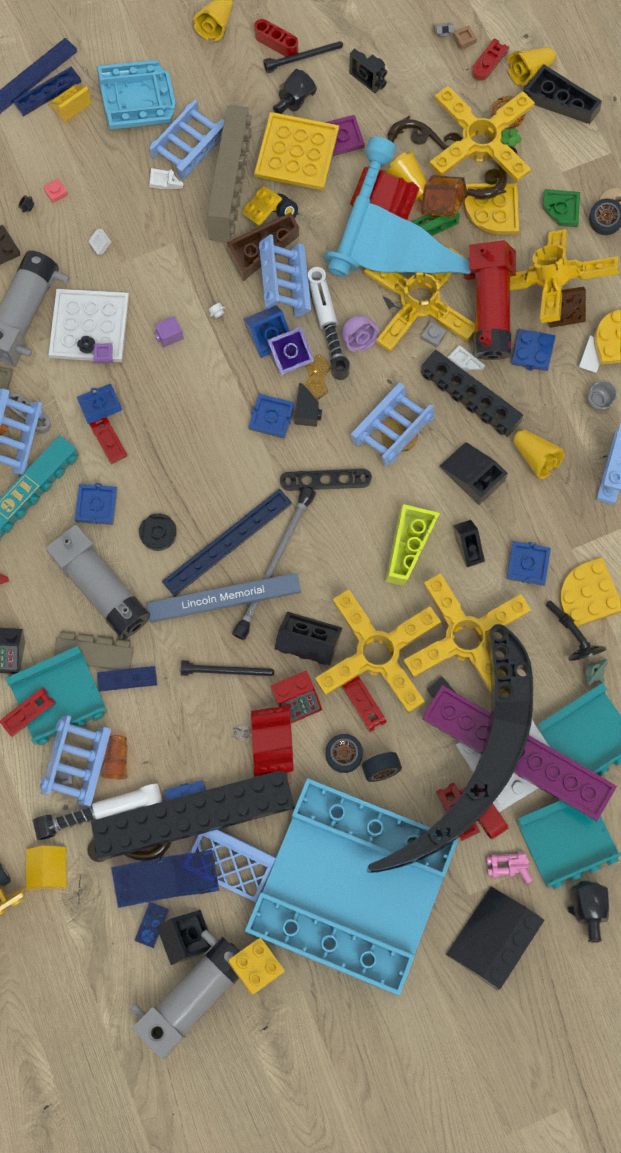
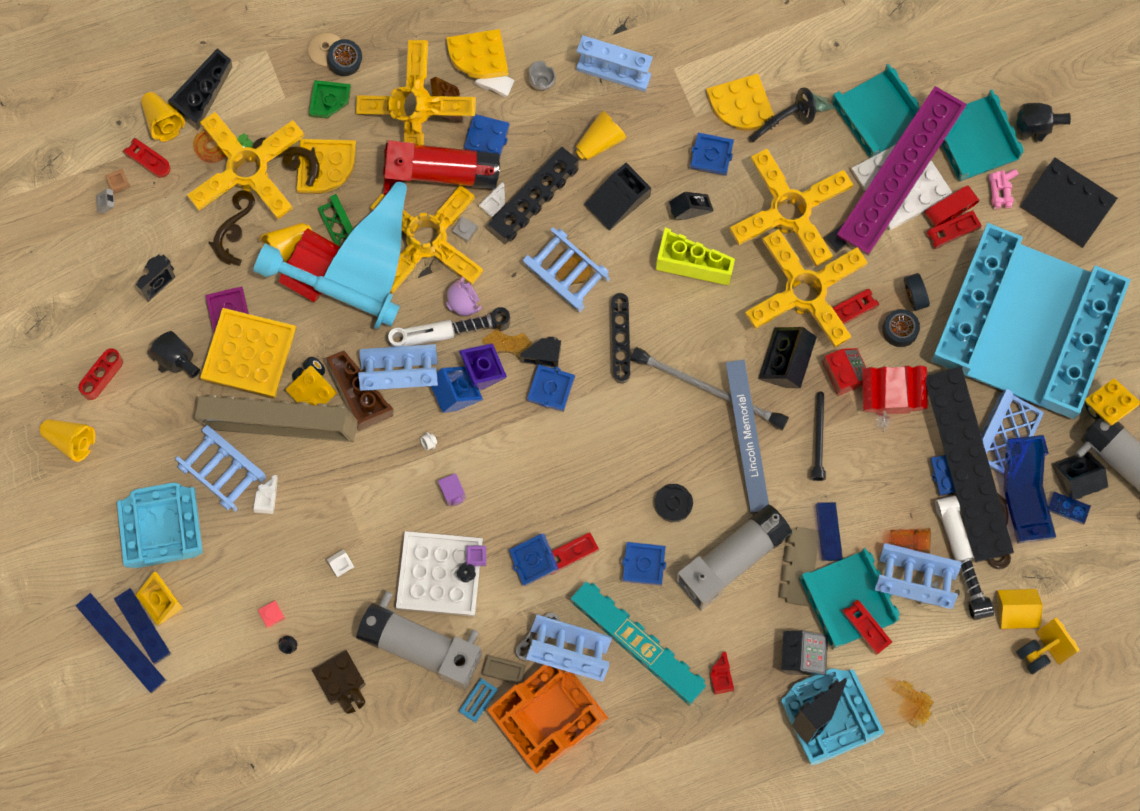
camera: 90 degrees left, 0 degrees up
(226, 542) = (686, 435): dark blue tile -> none
(272, 64) = (132, 381): black piece -> none
(443, 195) = (315, 207): clear orange slope -> none
(500, 755) = (921, 182): black beam -> none

